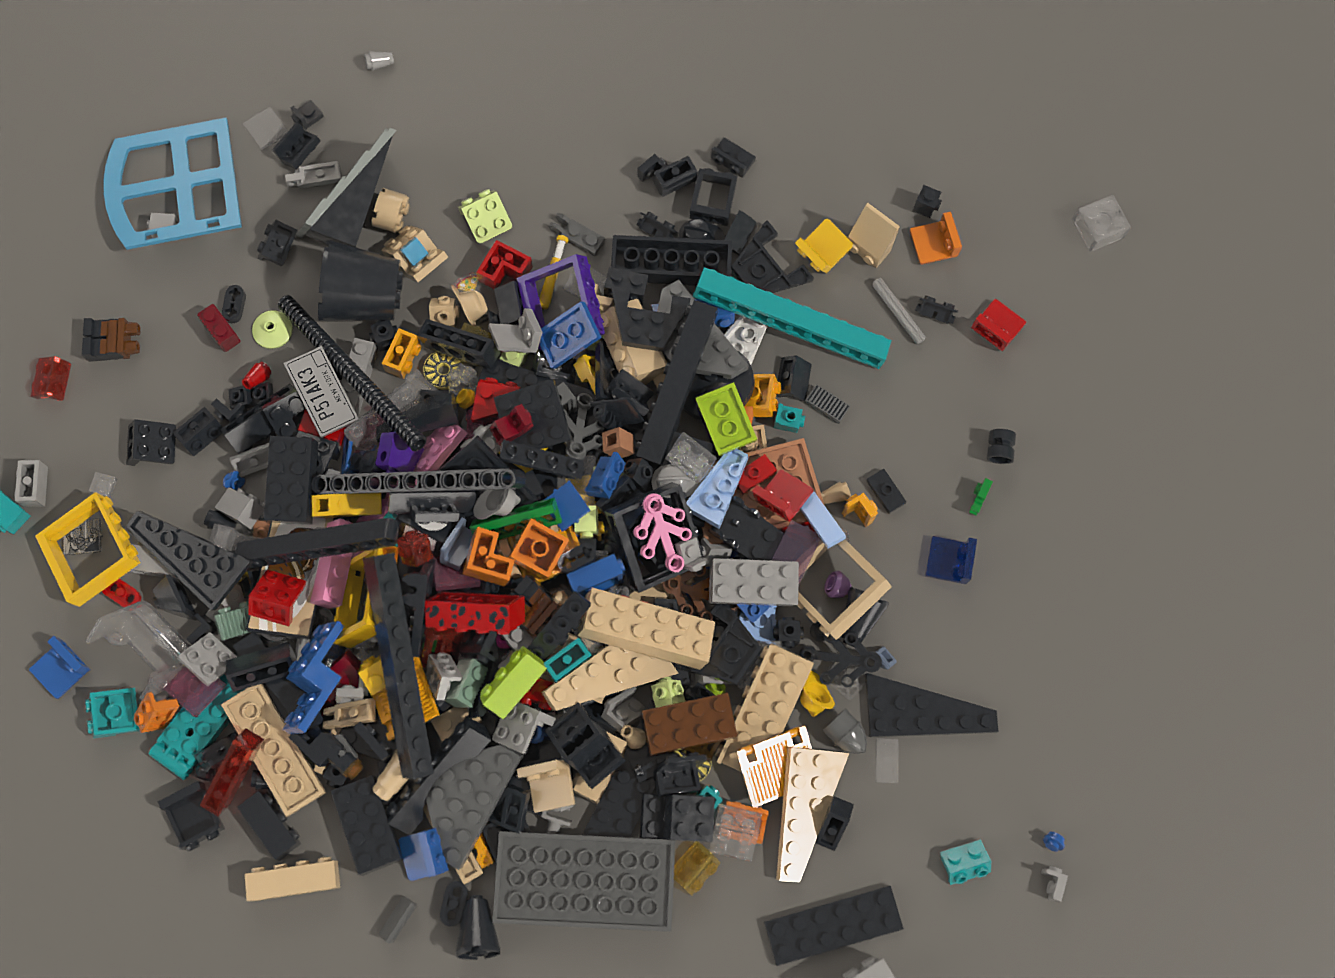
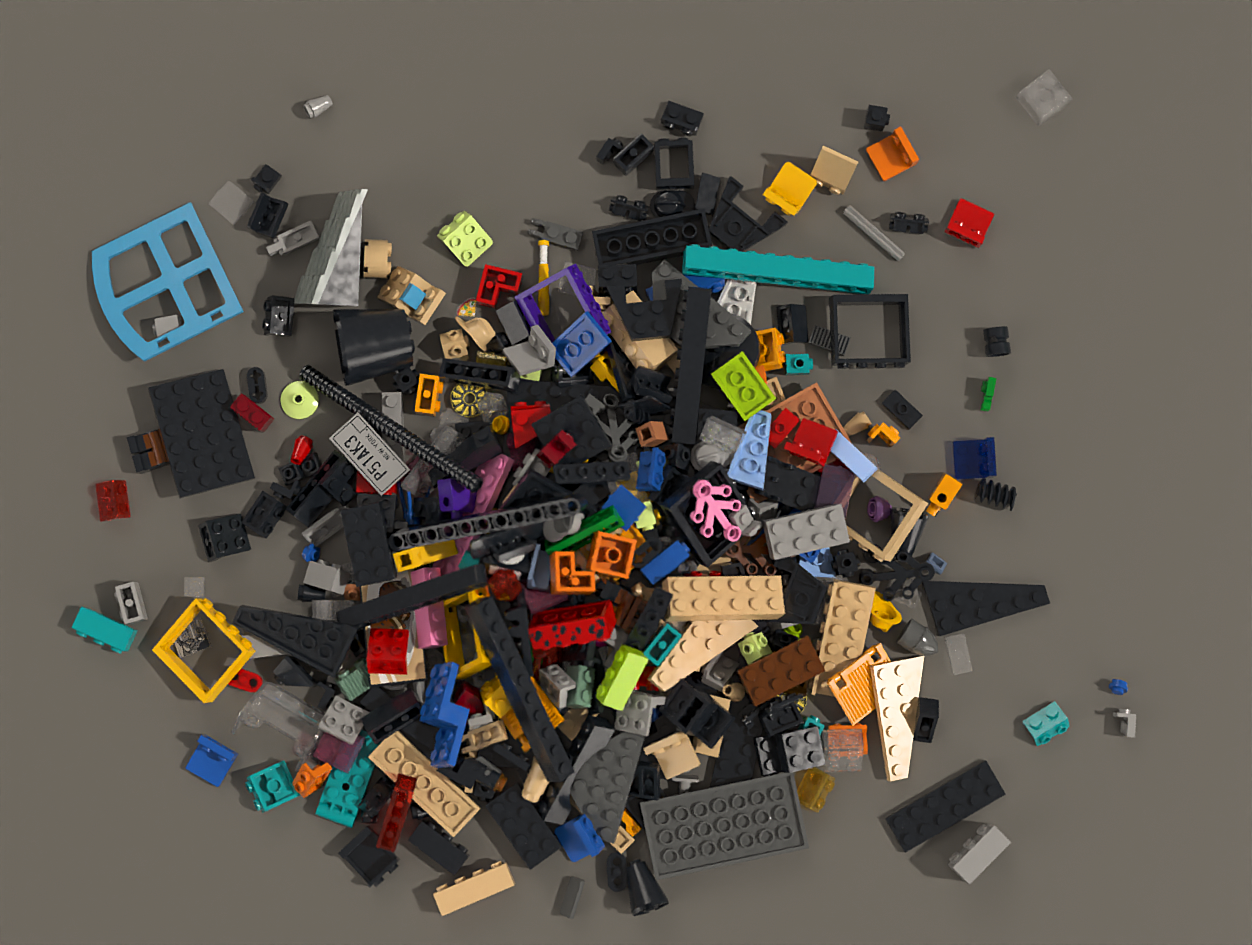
camera: 10 degrees left, 10 degrees up
(160, 335) = (201, 433): none -> black plate
(880, 373) = (871, 299): none -> black window
(916, 579) = (947, 486): none -> light orange torso
(966, 600) = (995, 493): none -> black piece

